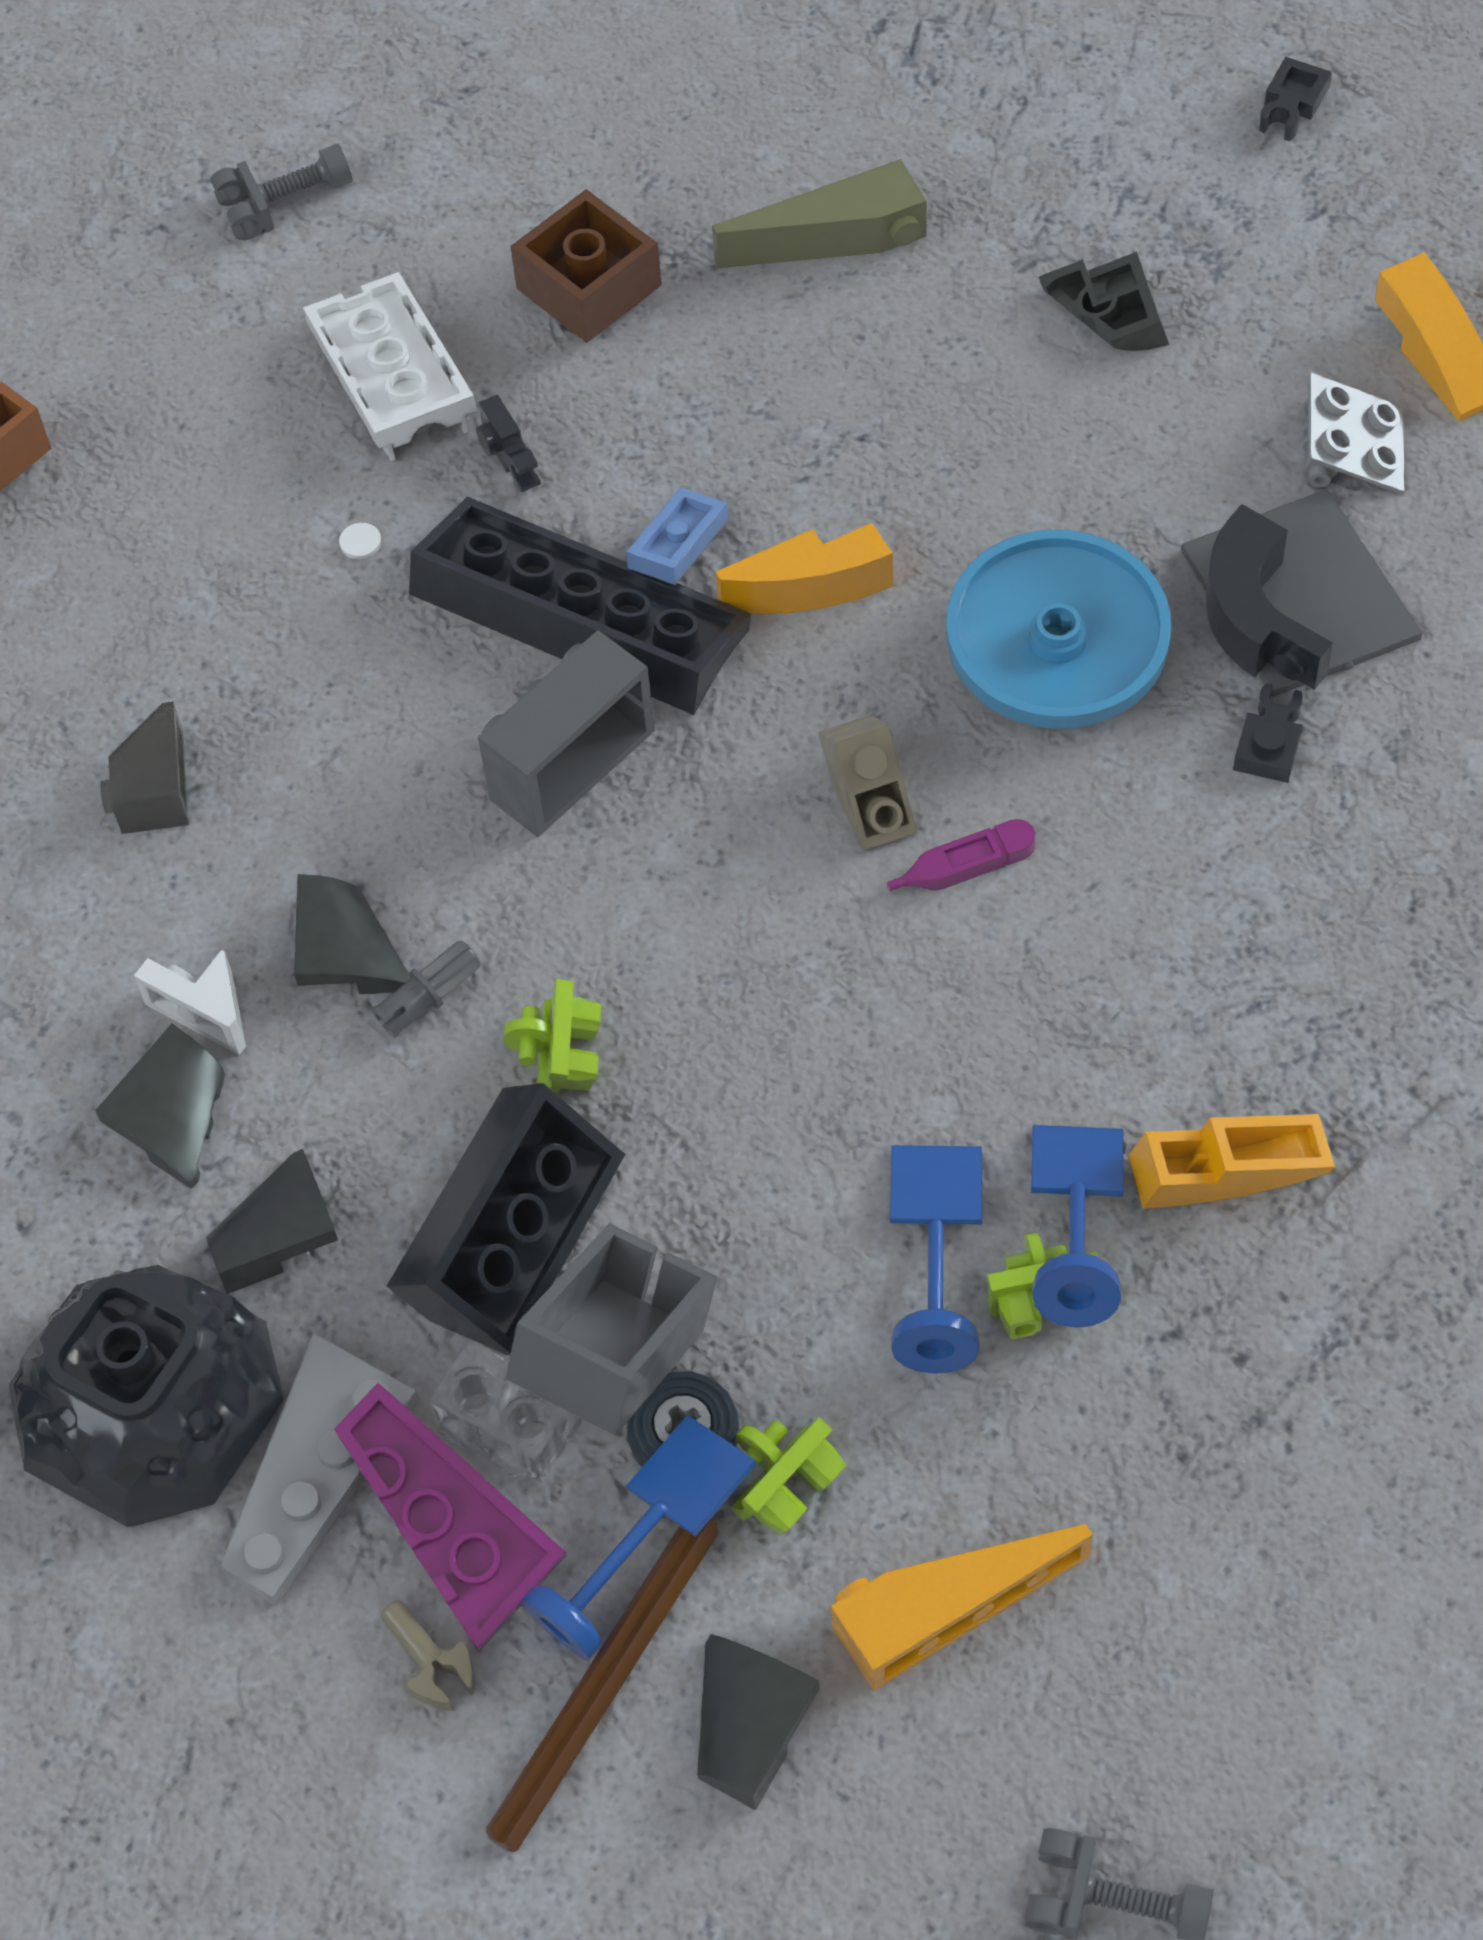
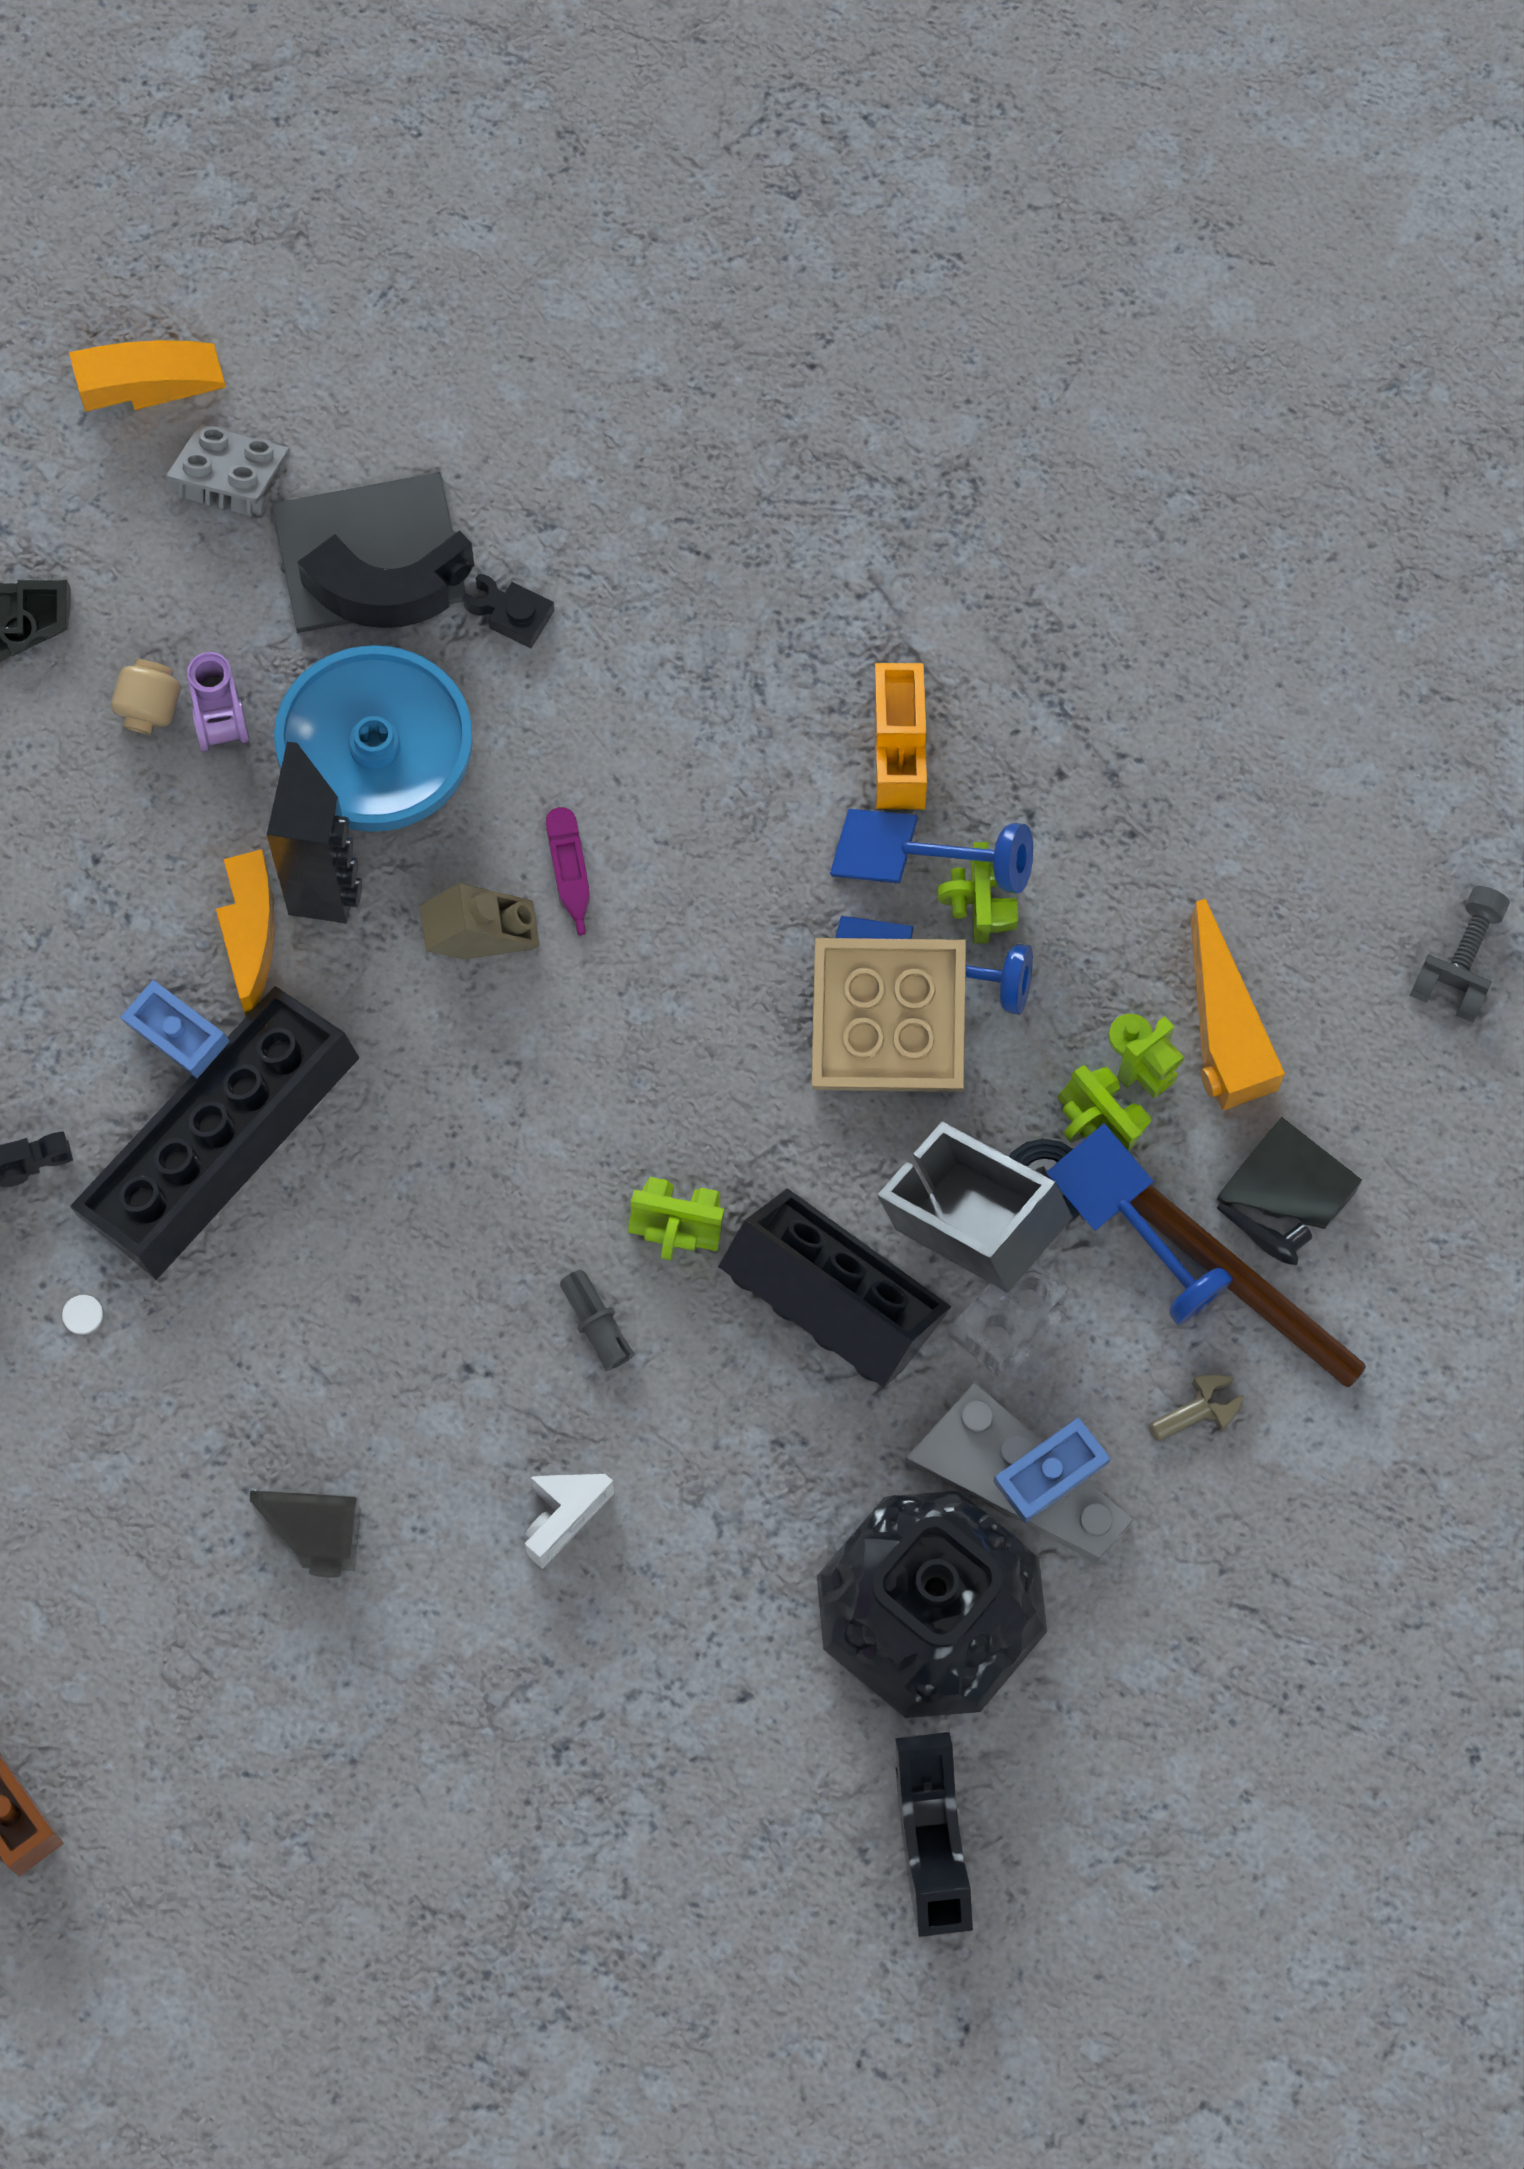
camera: 85 degrees left, 10 degrees up
(167, 1103) = (660, 1552): pearl dark grey slope -> none
(271, 1225) = (795, 1478): pearl dark grey slope -> none
(305, 1479) = (1051, 1470): none -> medium blue plate
(342, 939) = (527, 1384): pearl dark grey slope -> none
(453, 1519) = (1098, 1366): magenta wing -> none
(566, 732) = (378, 1152): dark grey piece -> none
(655, 1719) = (1269, 1240): none -> black bar
(853, 1209) = (889, 1015): none -> tan plate
(866, 1500) = (1146, 1054): none -> lime hips
(896, 565) = (312, 843): none -> black slope
(1051, 424) = (145, 696): none -> tan head
(1064, 486) = (216, 709): none -> lavender piece

